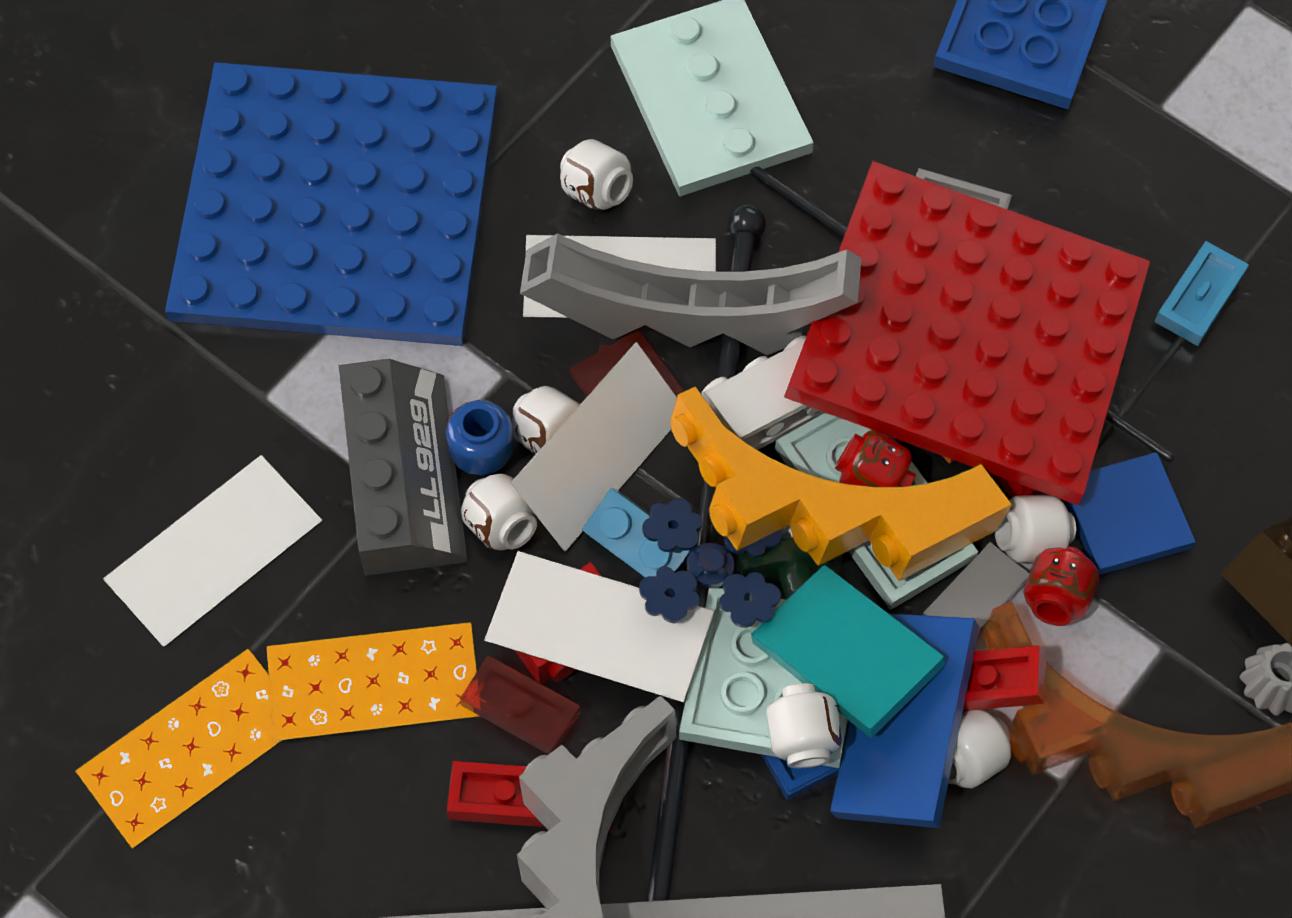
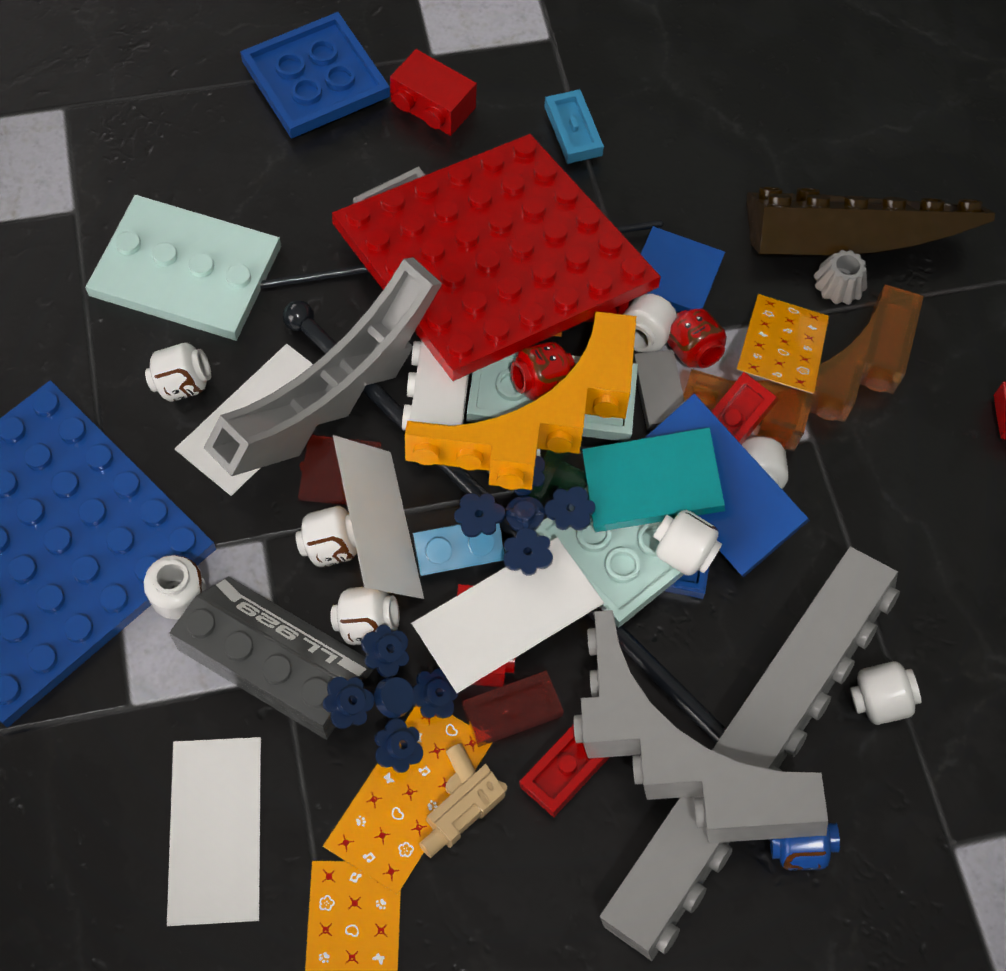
camera: 55 degrees left, 0 degrees up
(389, 332) = (172, 585): none -> white head
(407, 733) = (470, 798): none -> tan piece
(435, 590) = (392, 698): none -> dark blue plant
(480, 437) = (302, 585): blue head -> none
(1105, 141) = (433, 92): none -> red brick
(1129, 669) = (784, 343): none -> light orange sticker

